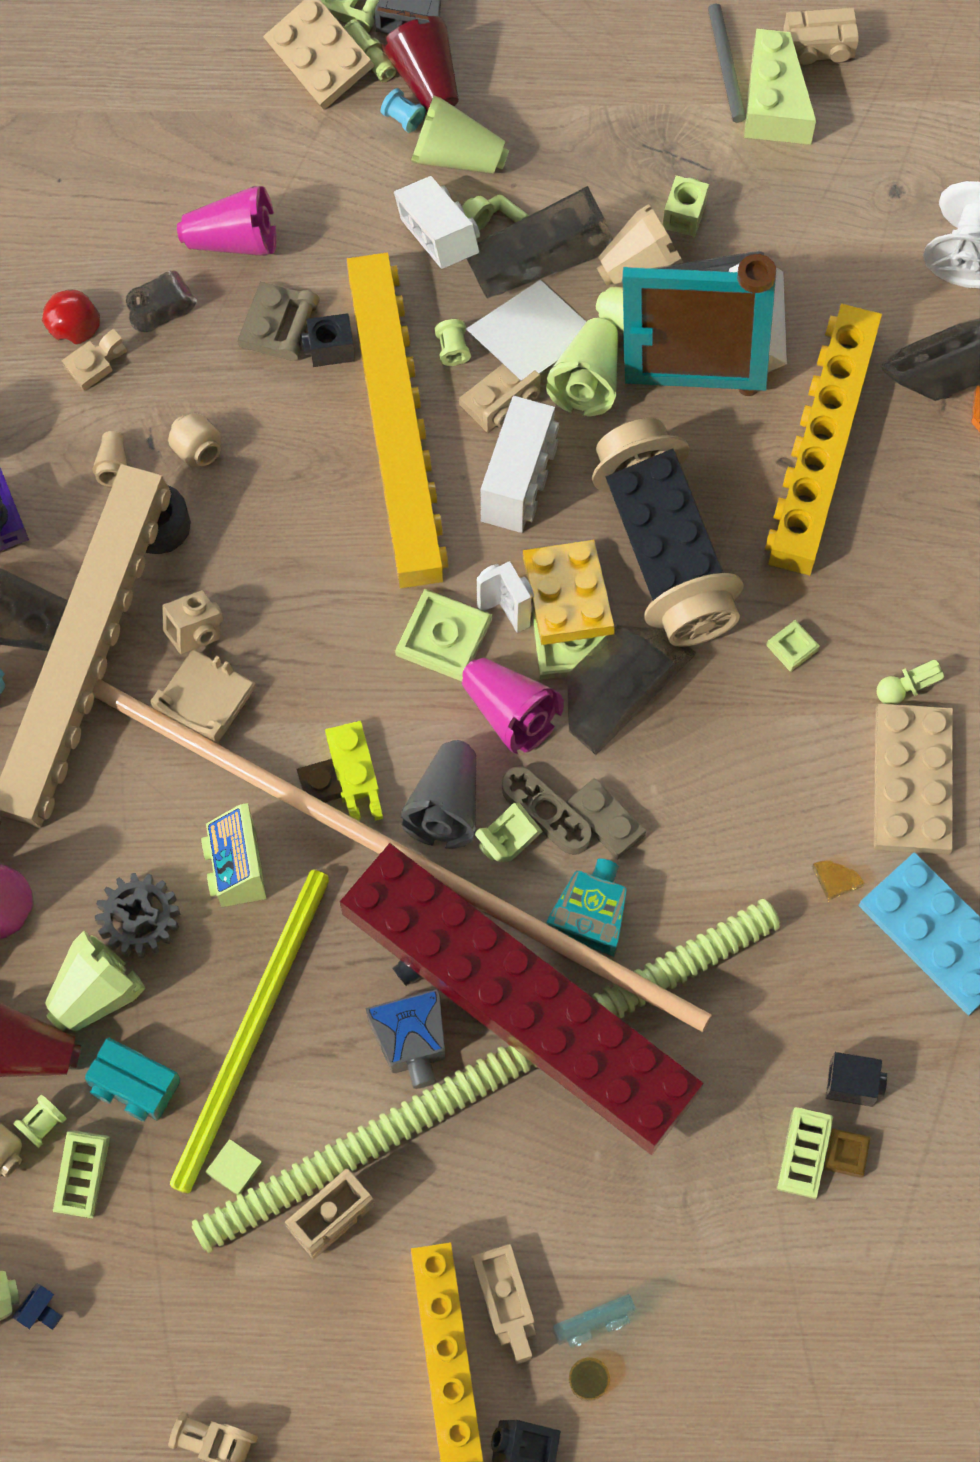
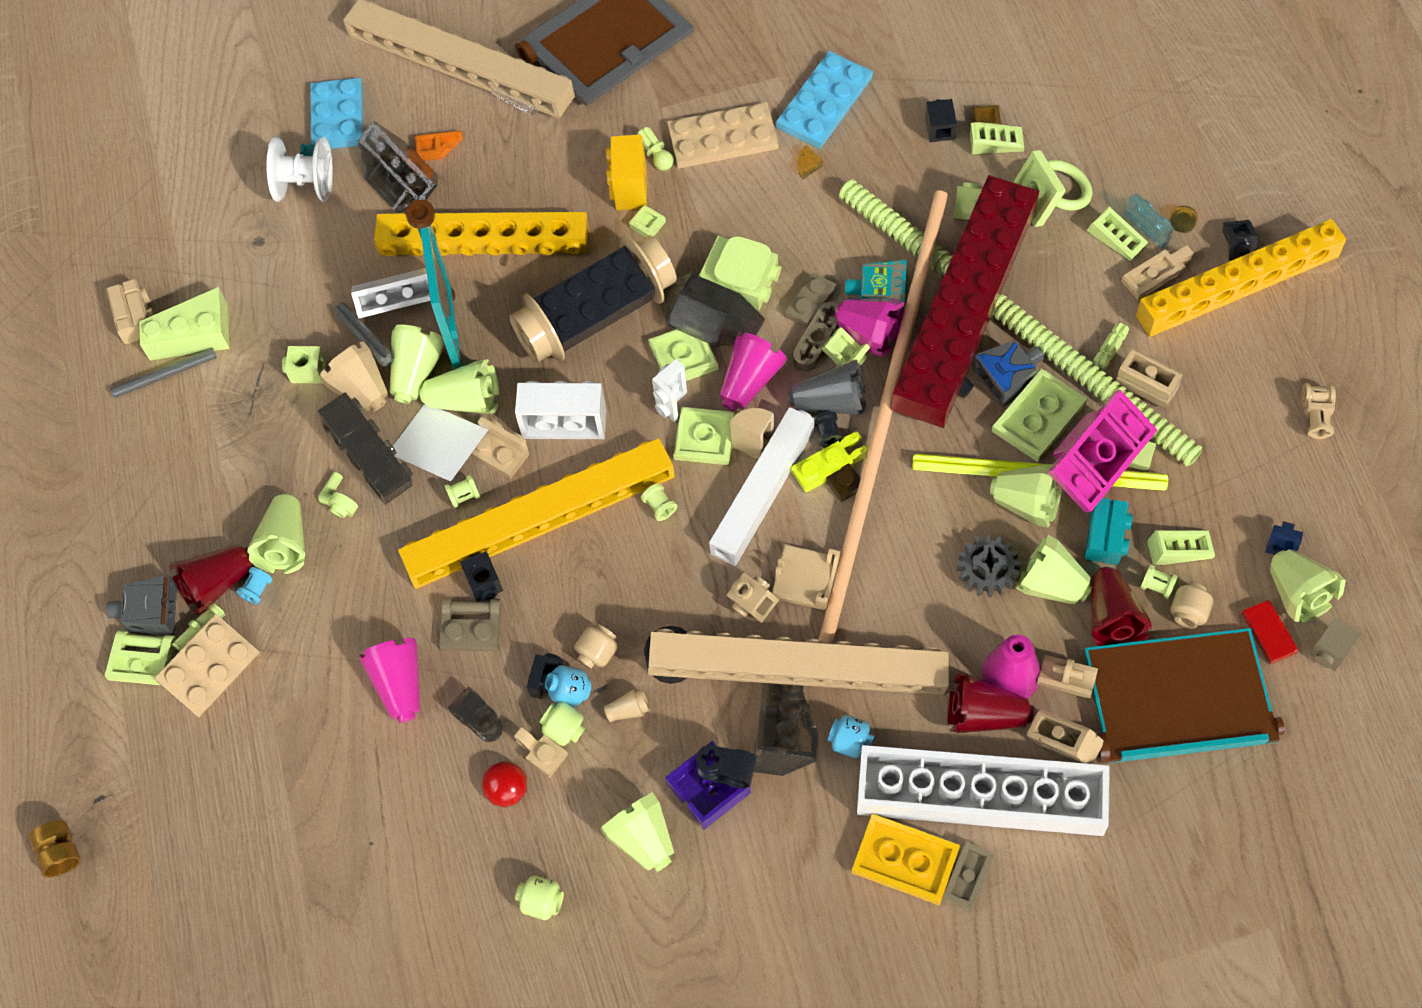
camera: 100 degrees left, 5 degrees down
(114, 384) = (562, 723): none -> yellowish green head
(155, 398) = (568, 685): none -> medium azure head
(183, 376) = (540, 669): none -> black bracket
(213, 995) = (1028, 494): none -> yellowish green cone
(223, 1086) = (1100, 450): none -> dark pink brick
(234, 858) = (925, 508): slope -> none
(332, 1055) = (1039, 415): none -> yellowish green plate
(344, 679) = (762, 486): none -> white brick
(363, 554) = (659, 502): none -> yellowish green bush
(397, 779) = (827, 428): none -> black bush
(409, 1191) = (1111, 346): none -> yellowish green axle
(410, 678) = (752, 431): none -> tan brick
(437, 222) = (362, 521): white brick -> none
(532, 871) = (871, 321): none -> dark pink cone
(568, 592) = (642, 358): yellow plate -> none
(616, 1249) = (1105, 235): none -> yellowish green slope
(669, 733) = (743, 267): none -> yellowish green brick
(683, 1174) = (1040, 175): none -> yellowish green tile
(711, 1070) = (965, 200): none -> yellowish green bracket
(865, 626) = (627, 172): none -> yellow brick

